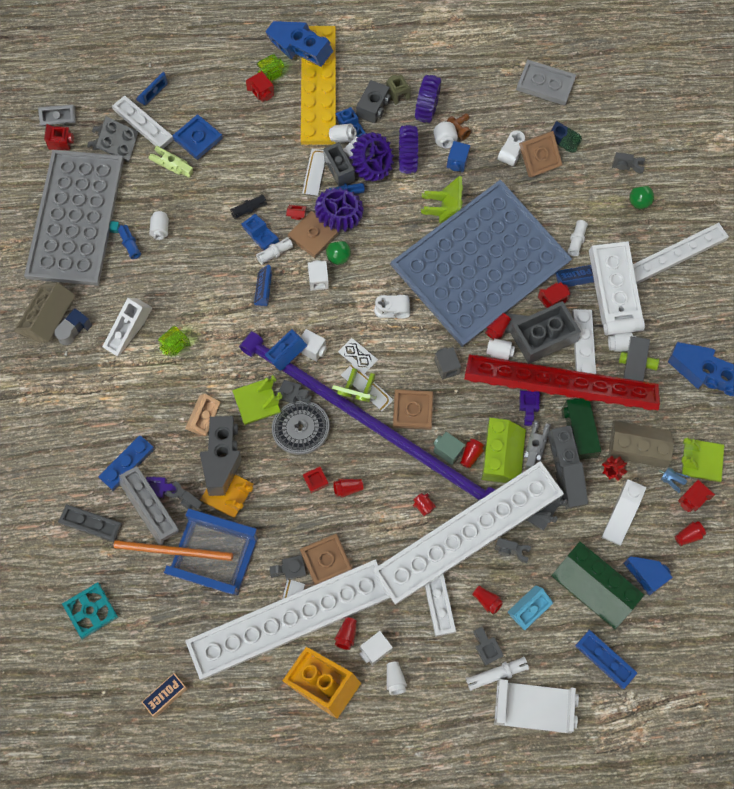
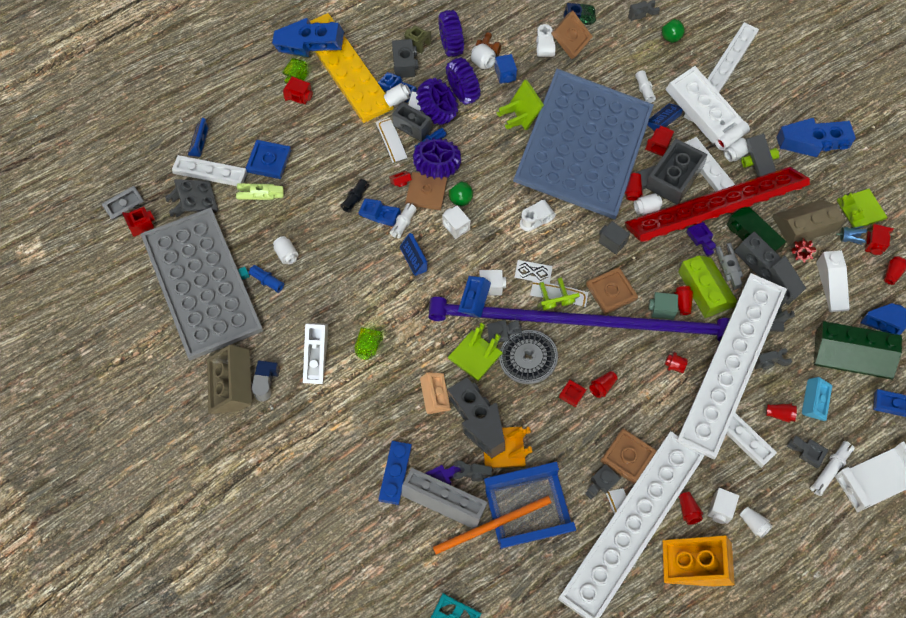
camera: 30 degrees left, 5 degrees down
(90, 523) = (398, 545): dark grey tile -> none

